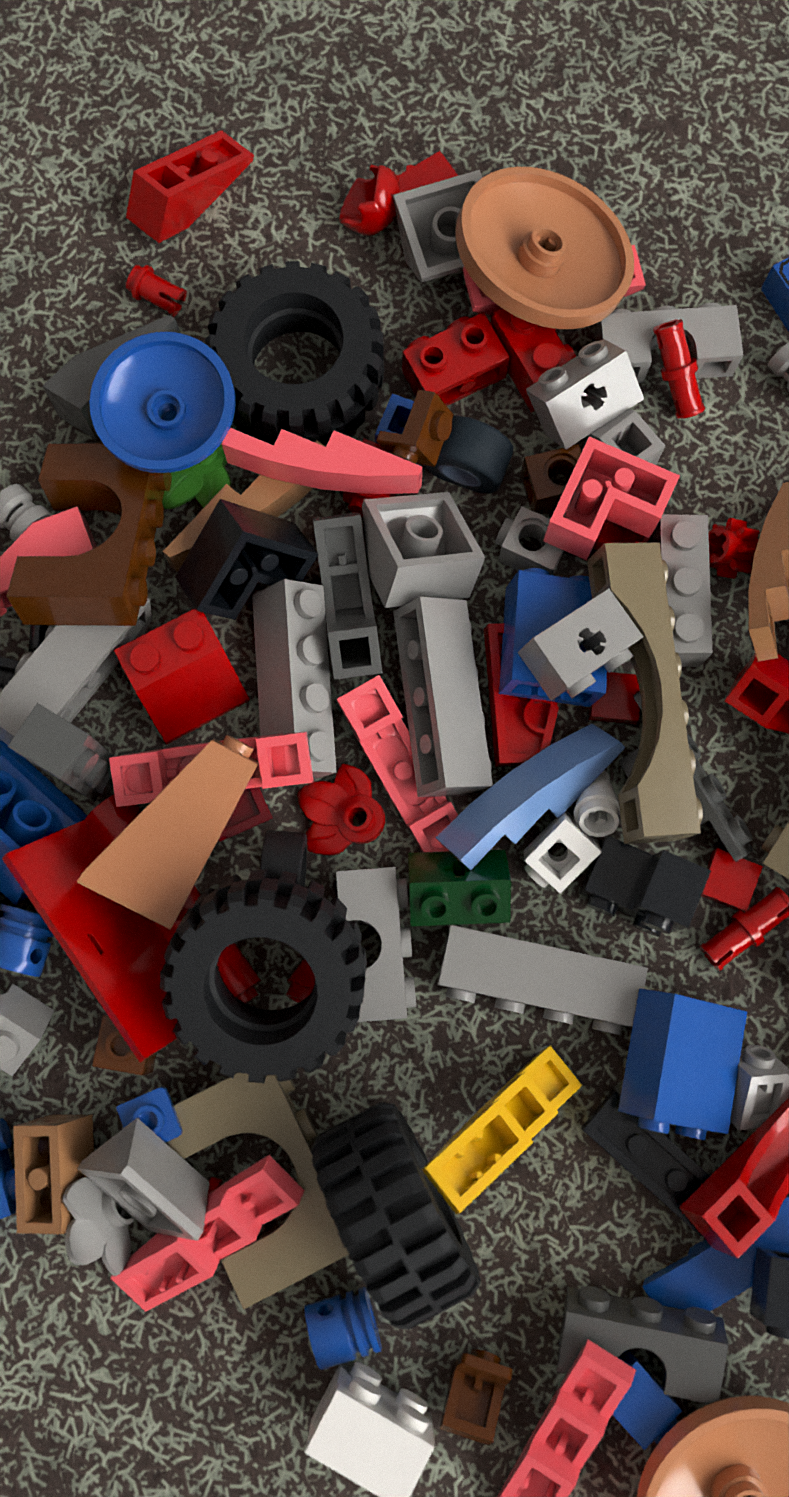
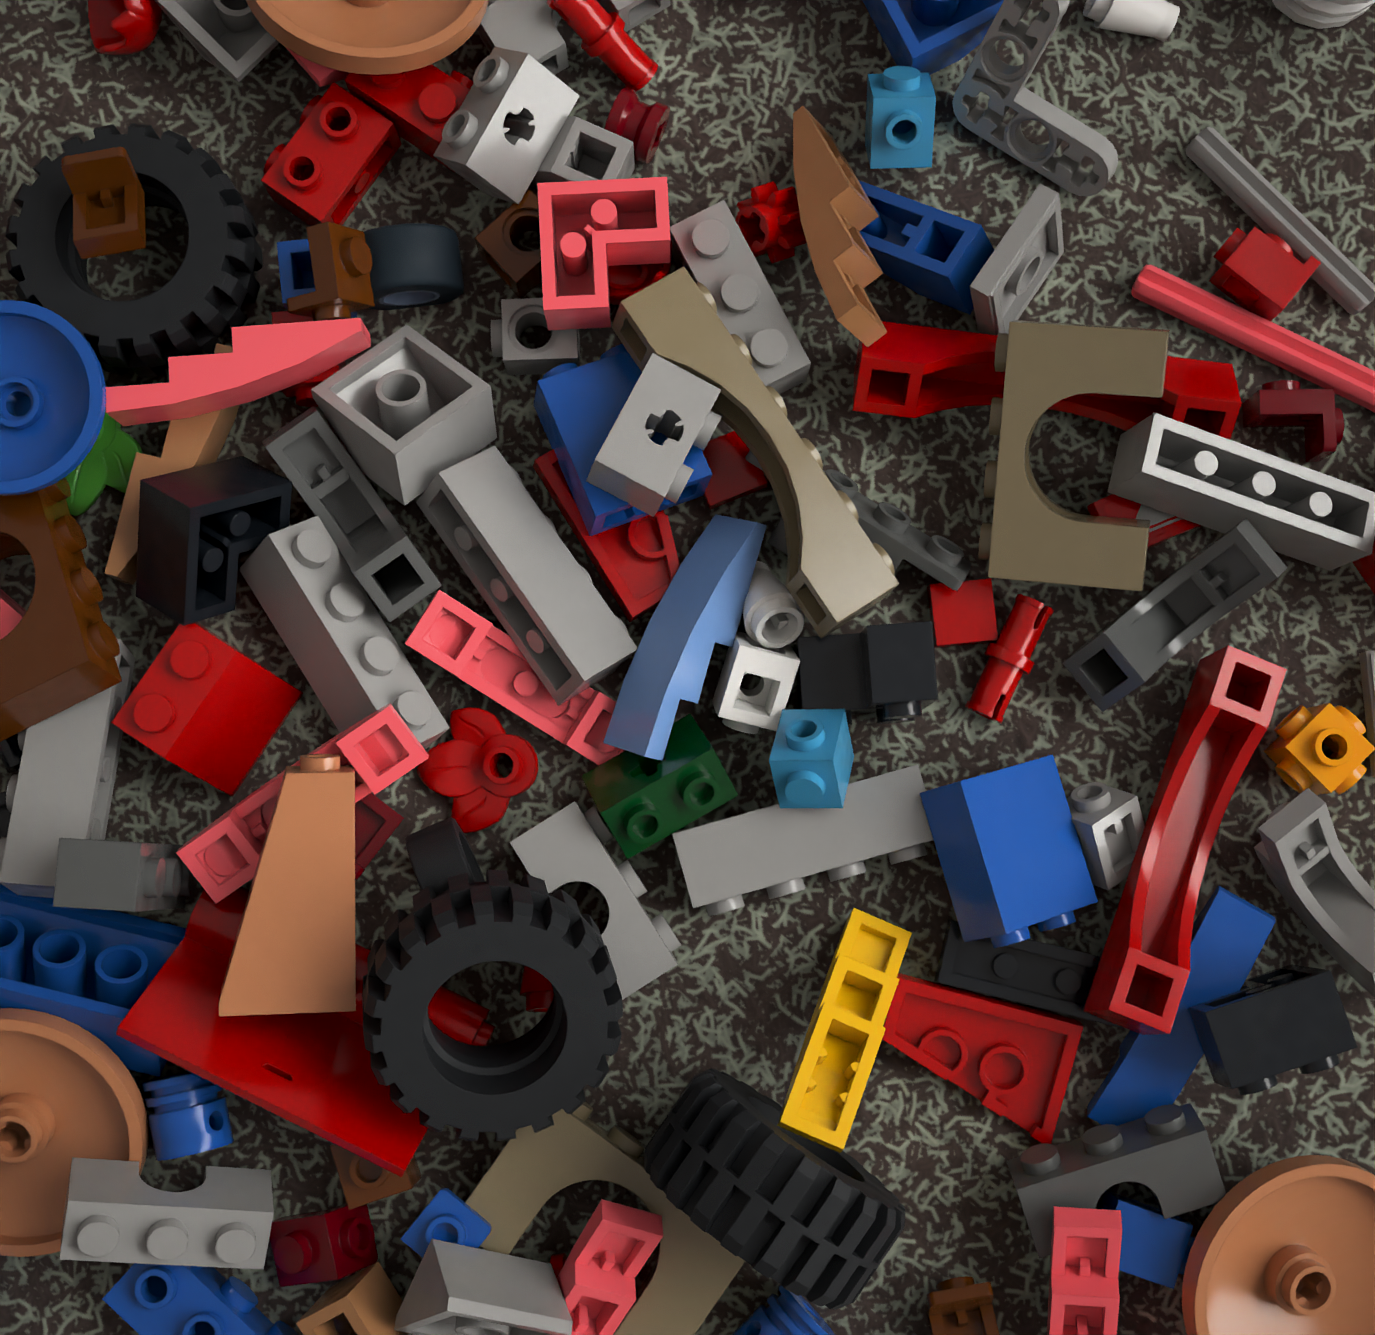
camera: 30 degrees left, 5 degrees up
(61, 1082) = (322, 1245): none -> dark red bracket
(295, 308) = (105, 202): none -> reddish brown bracket
(575, 924) = (811, 758): none -> dark azure brick
(598, 1200) = (989, 1047): none -> red wing
(675, 437) = (639, 123): none -> dark red wheel

